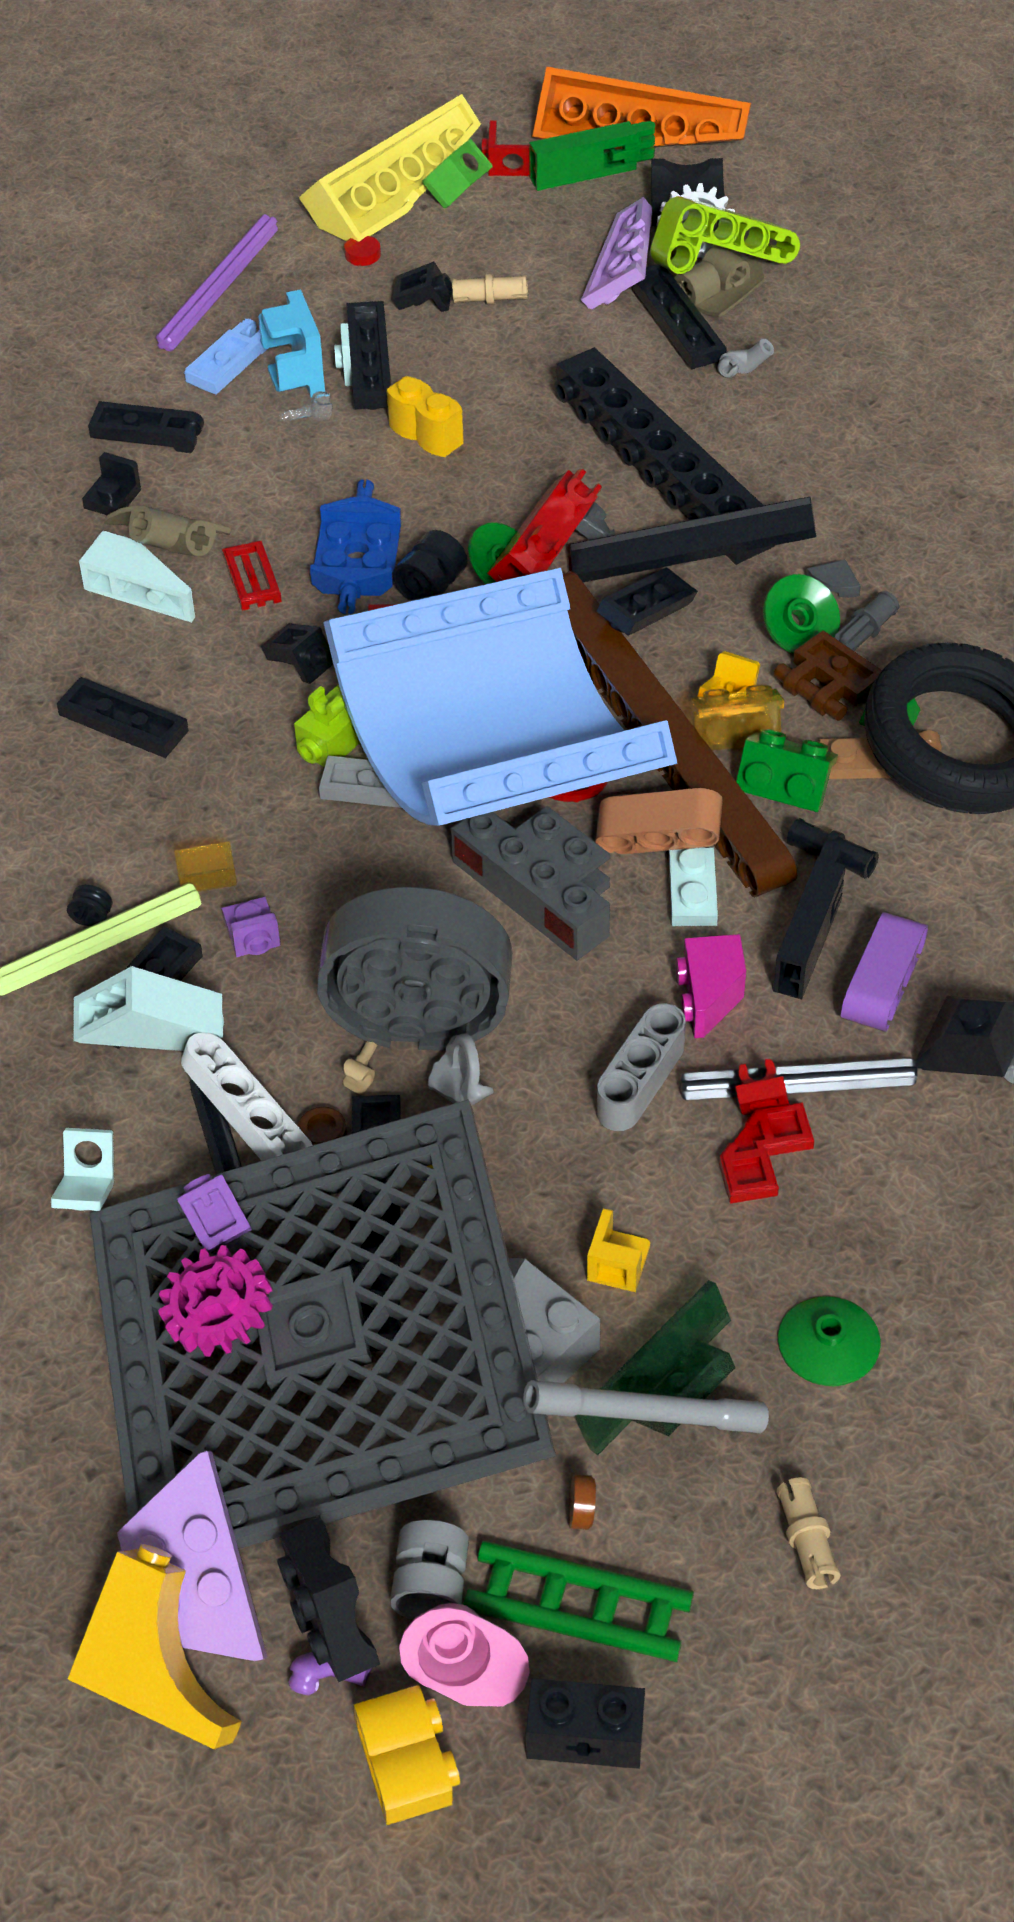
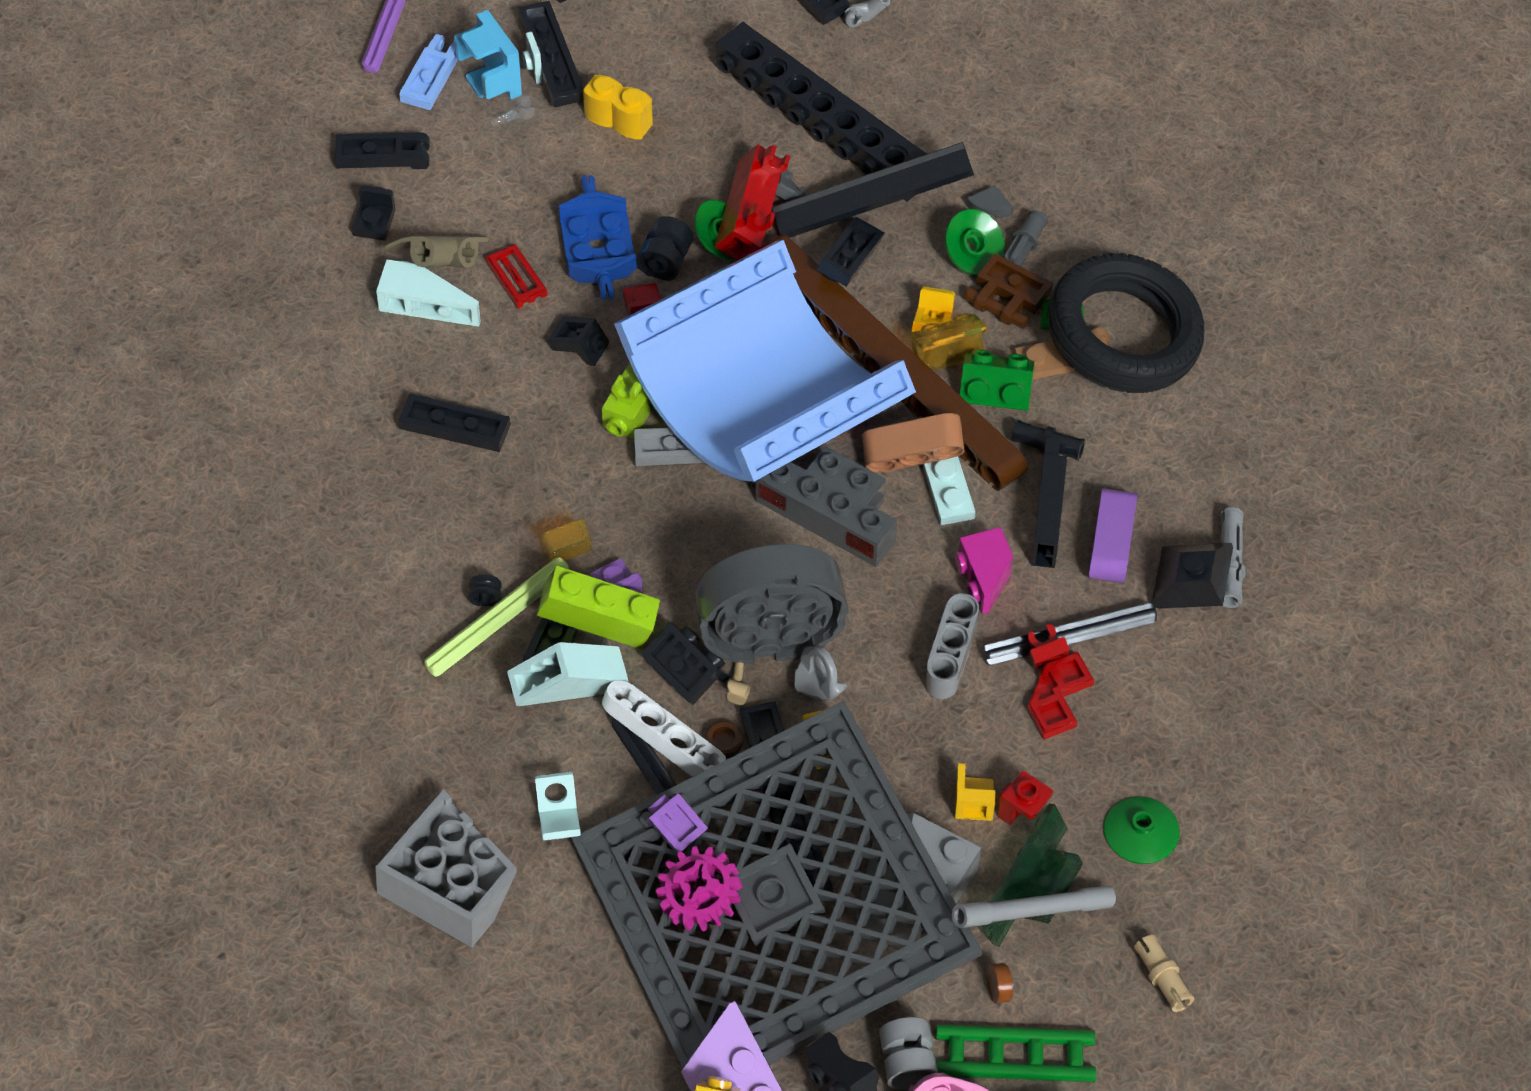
camera: 15 degrees left, 5 degrees up
(211, 943) = (598, 607): none -> lime brick
(301, 1029) = (684, 662): none -> black bracket
(676, 1268) = (1023, 797): none -> red bracket

